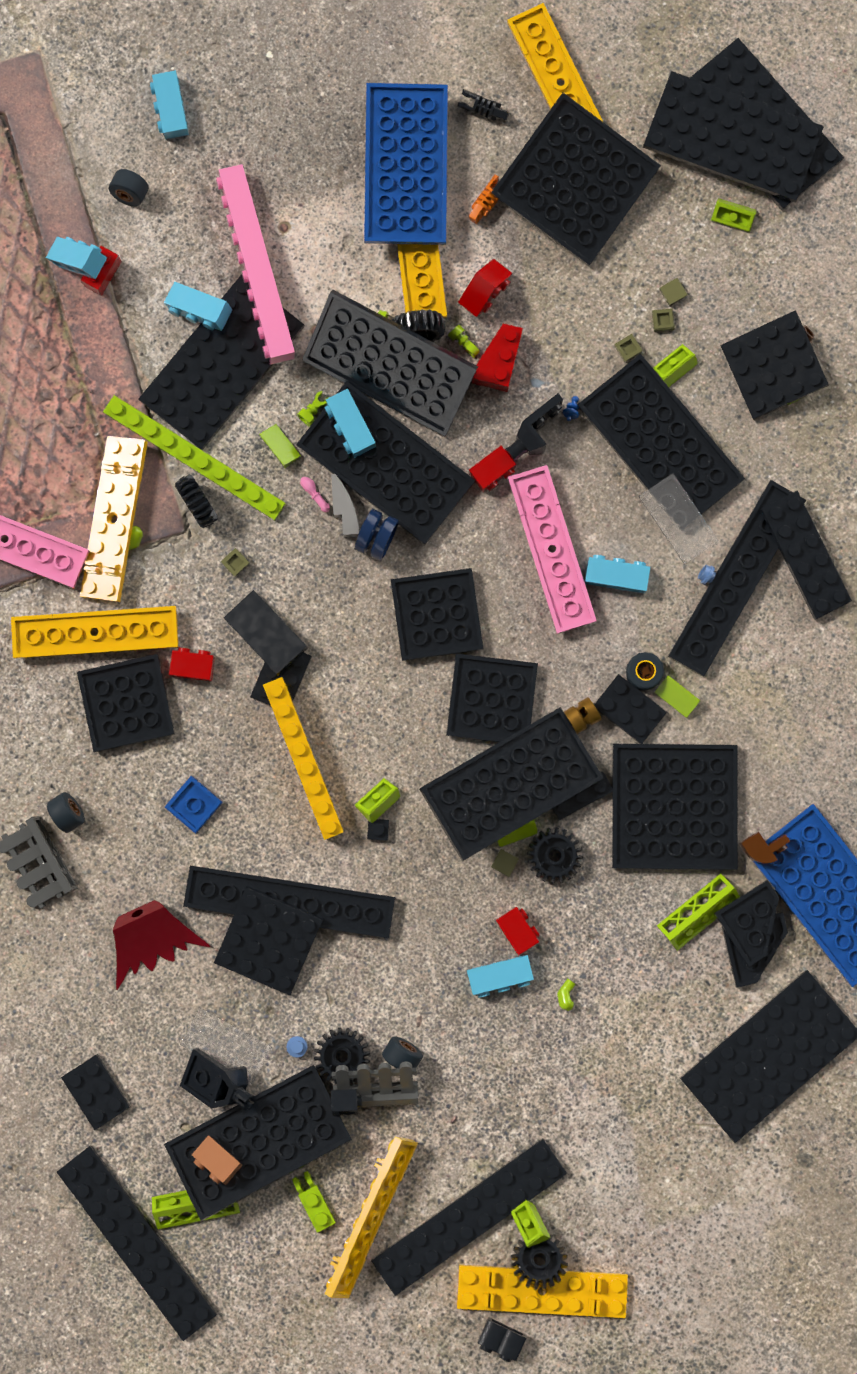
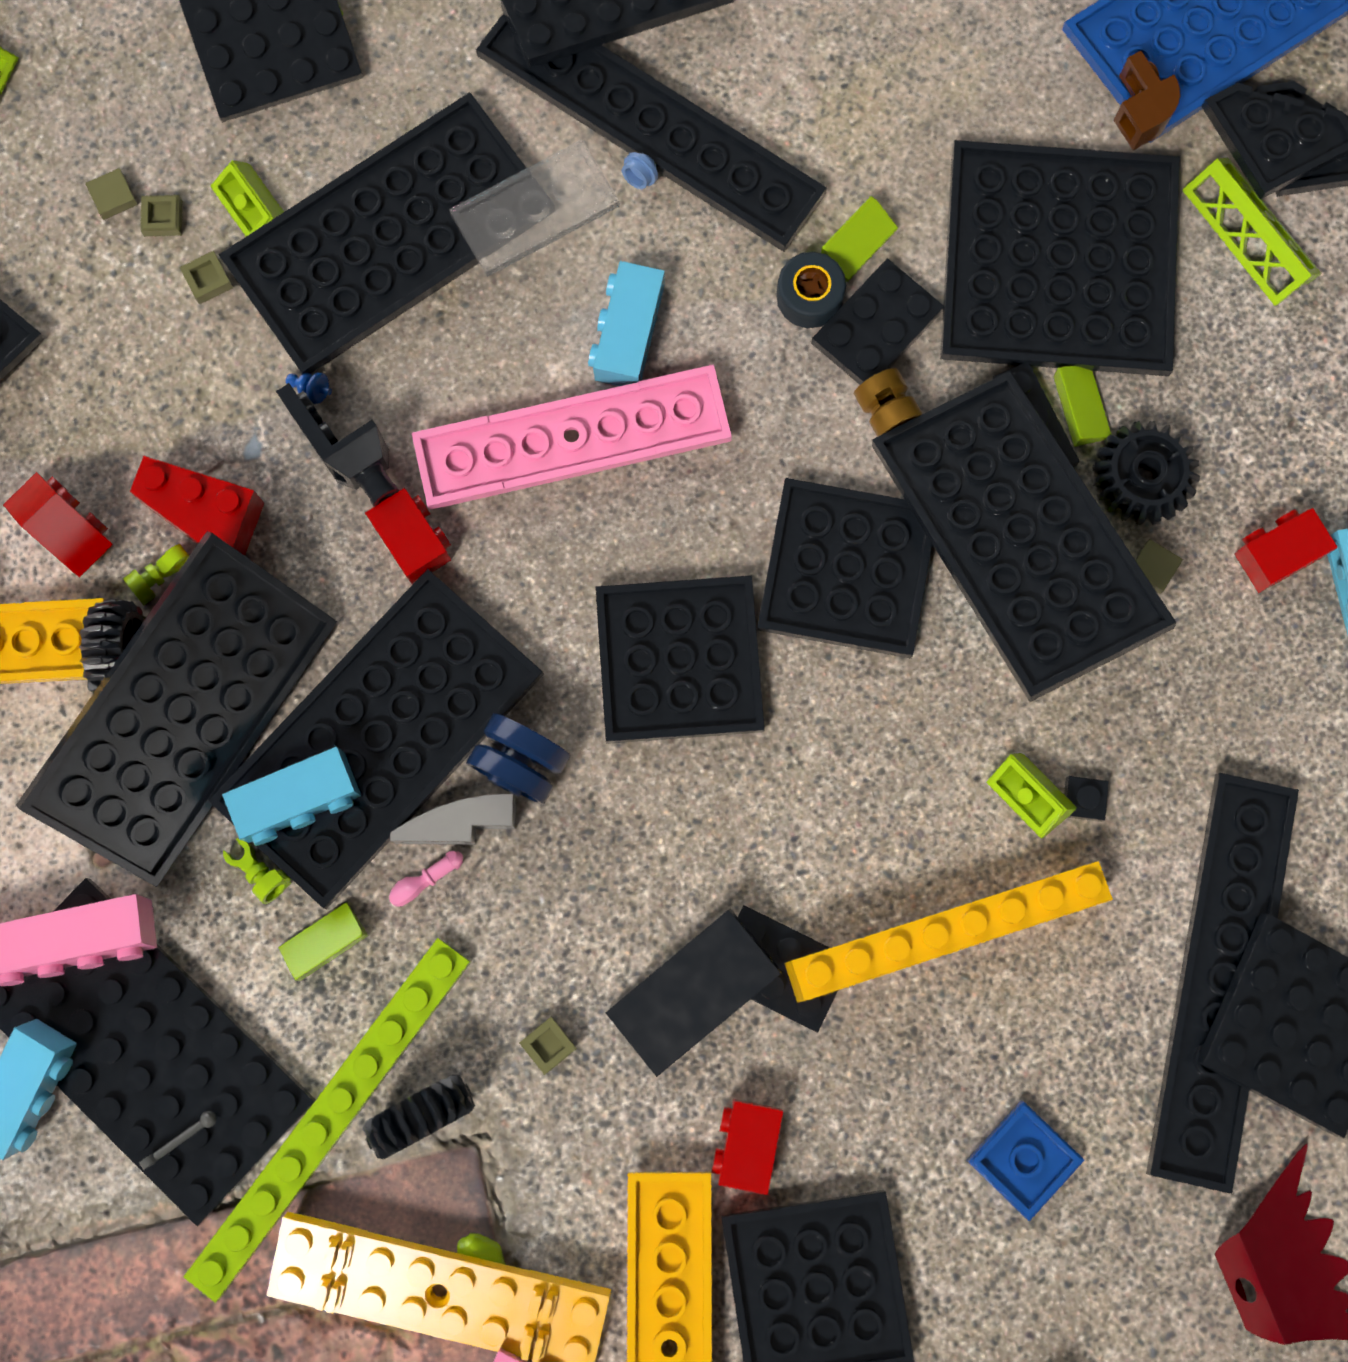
camera: 90 degrees left, 5 degrees down
(188, 398) = (206, 1120): none -> dark grey hinge
(591, 822) = (1081, 405): none -> lime slope

